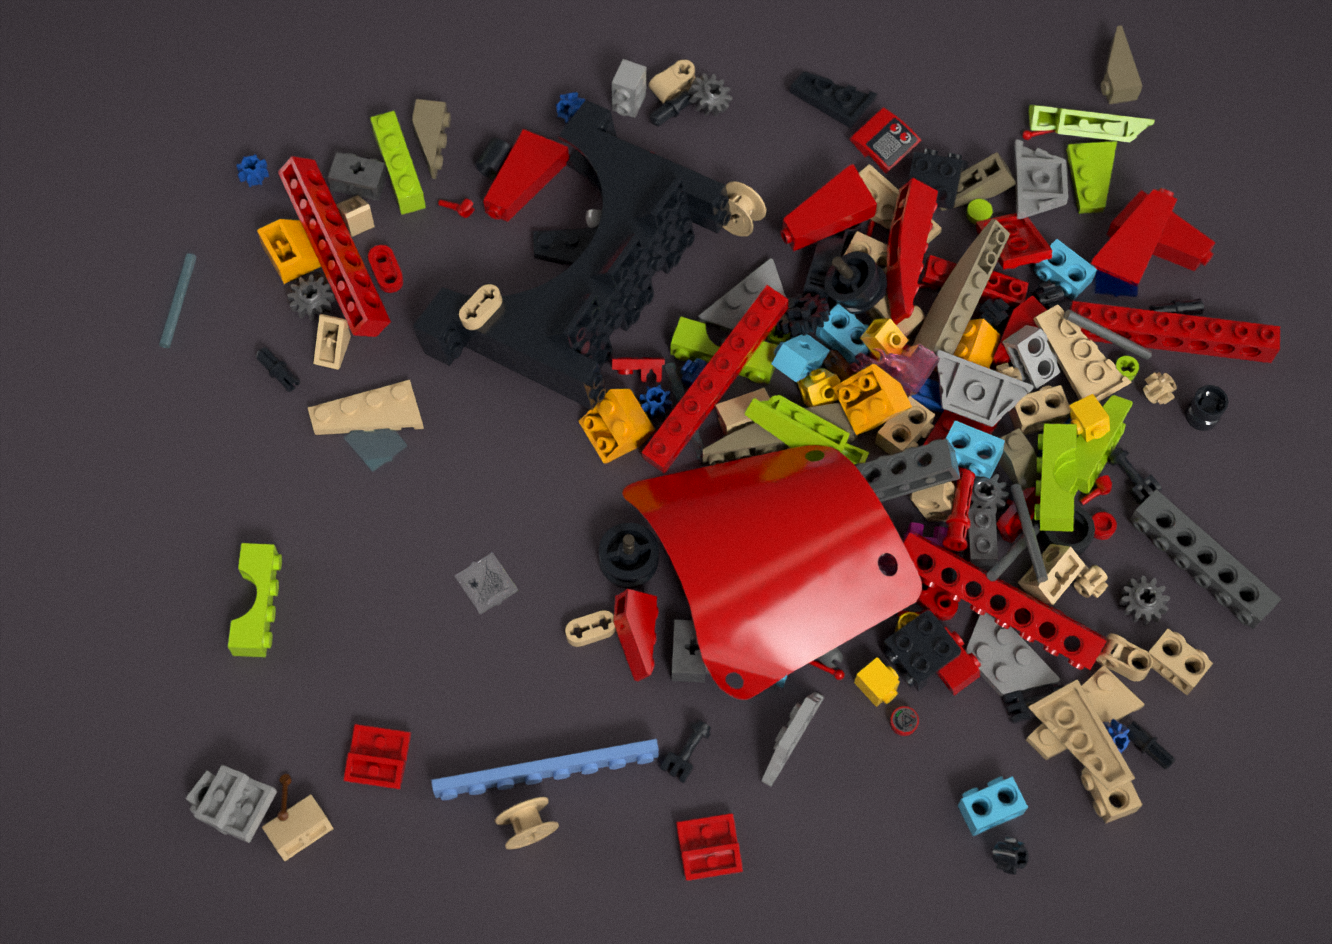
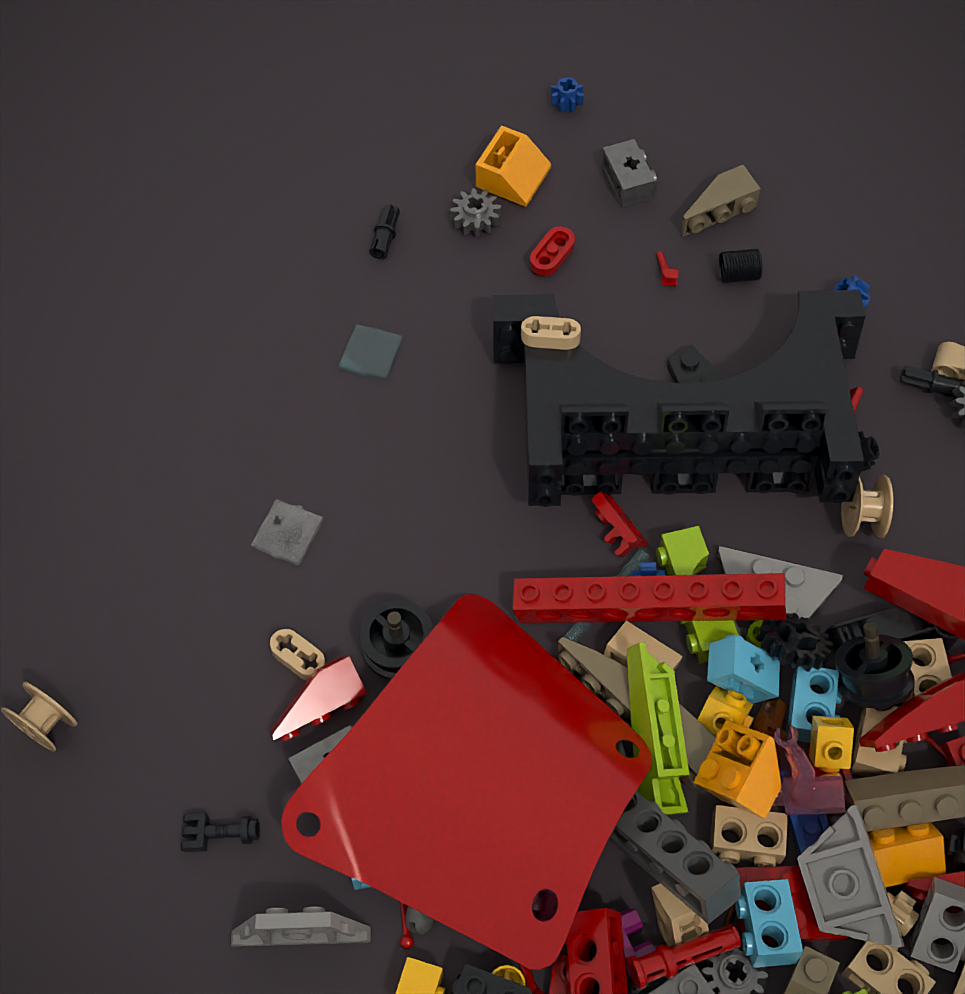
camera: 60 degrees right, 5 degrees down
(177, 301) = (398, 122): clear light blue bar -> none
(250, 633) = (111, 367): lime arch -> none
(331, 341) = (442, 254): tan slope -> none
(334, 247) = (537, 198): red brick -> none
(356, 215) = (587, 196): tan slope -> none
(376, 409) = (404, 333): tan wing -> none
(377, 756) = (46, 546): red slope -> none
(398, 162) = (649, 211): lime arch -> none
(524, 173) = (743, 299): red slope -> none
(535, 771) = (123, 714): medium blue plate -> none
(617, 424) = (537, 542): light orange slope -> none
(628, 88) = (914, 326): light grey brick -> none
(655, 401) = (589, 554): blue gear -> none
(709, 846) = (122, 920): red slope -> none

